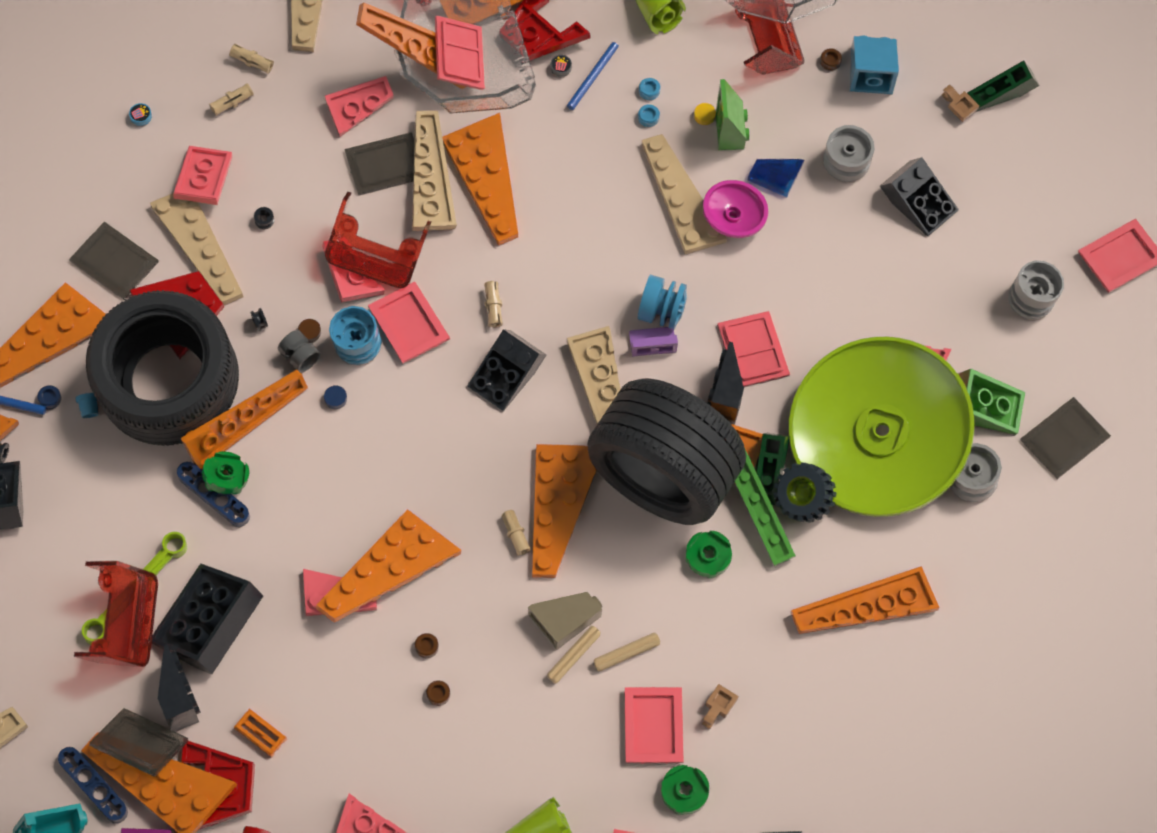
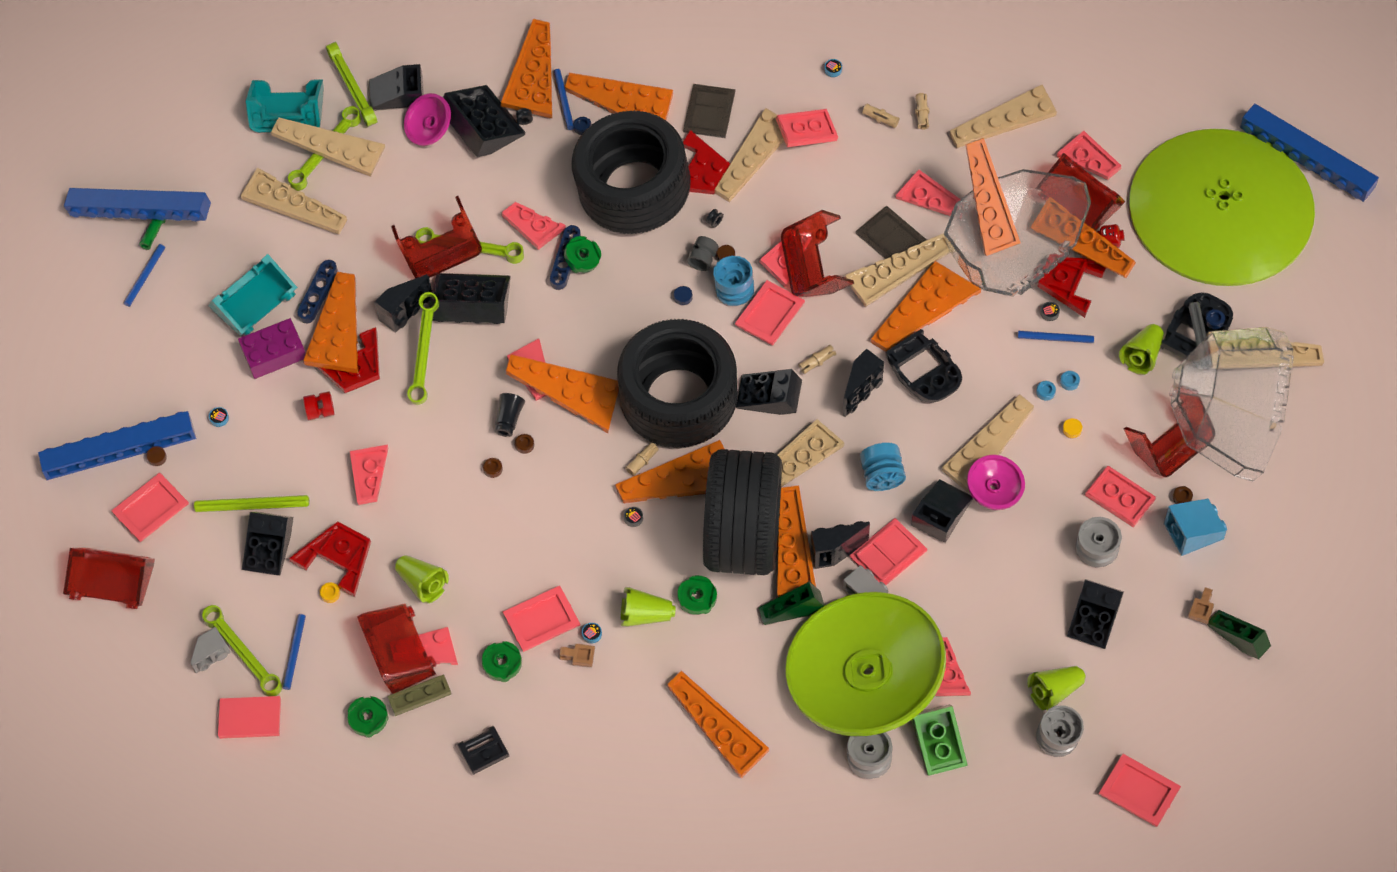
camera: 70 degrees right, 5 degrees down
(138, 742) = (356, 299): clear smoke piece -> none
(154, 508) = (532, 226): none -> coral wing
(241, 419) = (629, 244): orange wing -> none
(251, 696) = (423, 348): none -> lime piece
(269, 215) = (797, 178): black bush -> none
(275, 745) = (402, 385): orange tile -> none
(384, 644) = (508, 413): none -> black plant
(450, 401) = (671, 347): none -> black tyre
(459, 53) = (1005, 233): coral piece -> none
(549, 273) = (864, 377): none -> black slope
(565, 616) = (592, 521): dark tan slope -> none
(573, 654) = (568, 541): tan axle -> none
(579, 574) = (633, 516): none -> tile
(586, 204) = (935, 384): none -> black slope
(626, 651) = (589, 575): tan axle -> none
(653, 341) = (851, 479): medium lavender panel -> none
(697, 681) = (591, 633): none -> tile
(700, 614) = (644, 608): none -> lime cone
(730, 119) = (1072, 441): bright green slope -> none
(737, 274) = (941, 510): none -> black slope
(763, 515) = (757, 604): bright green plate -> none
(776, 174) = (1051, 502): clear blue wing -> none
(782, 387) = (862, 581): none -> light grey slope
(802, 111) = (1120, 496): none -> coral tile
(804, 492) = (780, 635): black wheel -> none
(983, 271) = (1054, 685): none -> lime cone
(1065, 438) = (946, 814): clear smoke piece -> none

